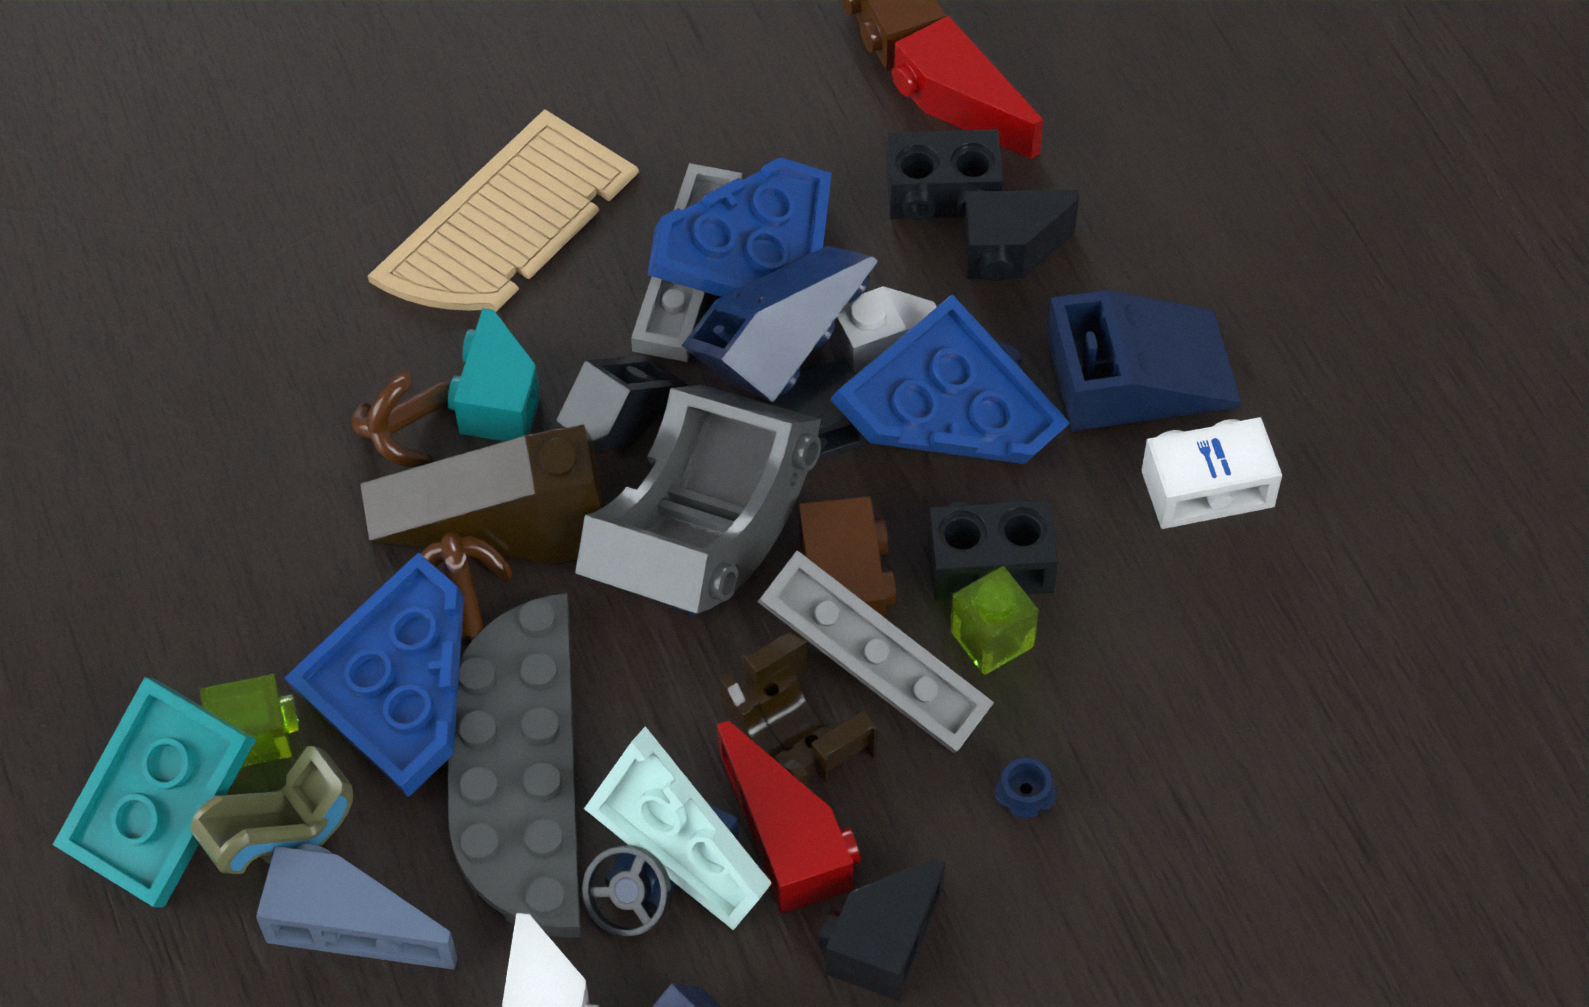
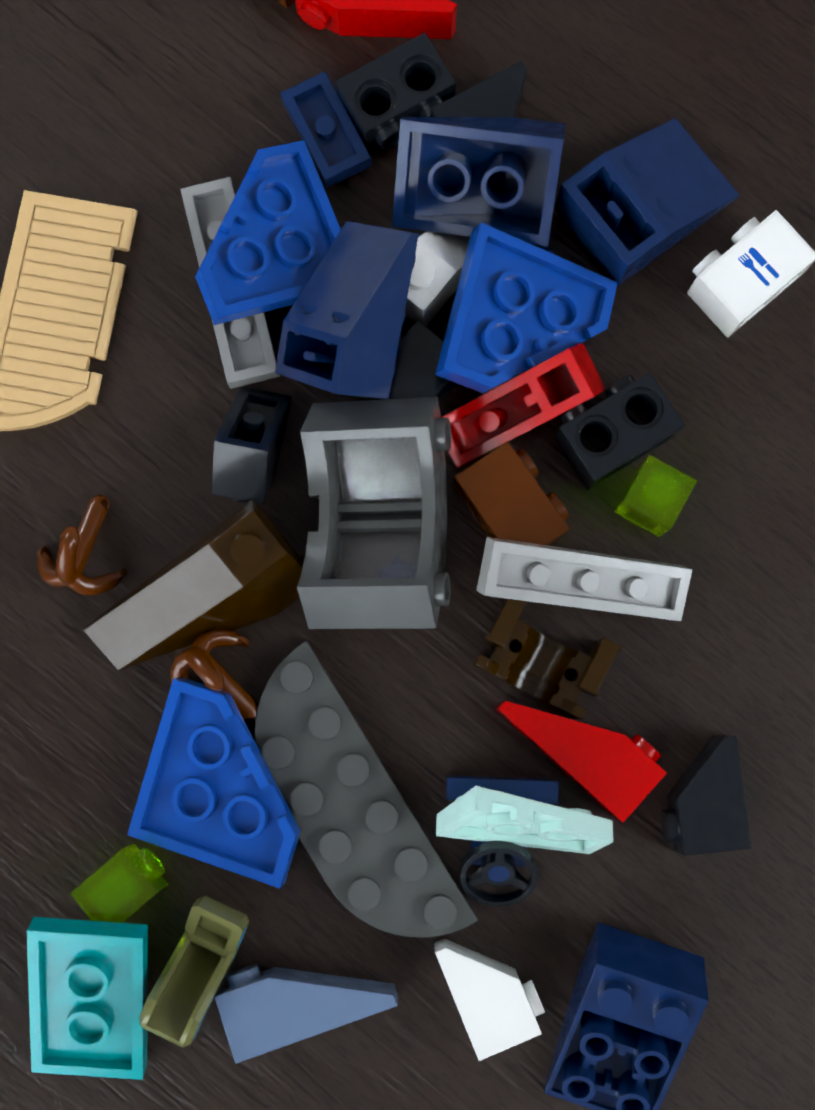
camera: 25 degrees left, 25 degrees up
(498, 383) = (141, 480): teal slope -> none
(859, 177) = (326, 129): none -> dark blue plate
(914, 476) = (523, 403): none -> red slope
(982, 256) = (477, 172): none -> dark blue slope
(1029, 773) = (760, 621): dark blue plate -> none

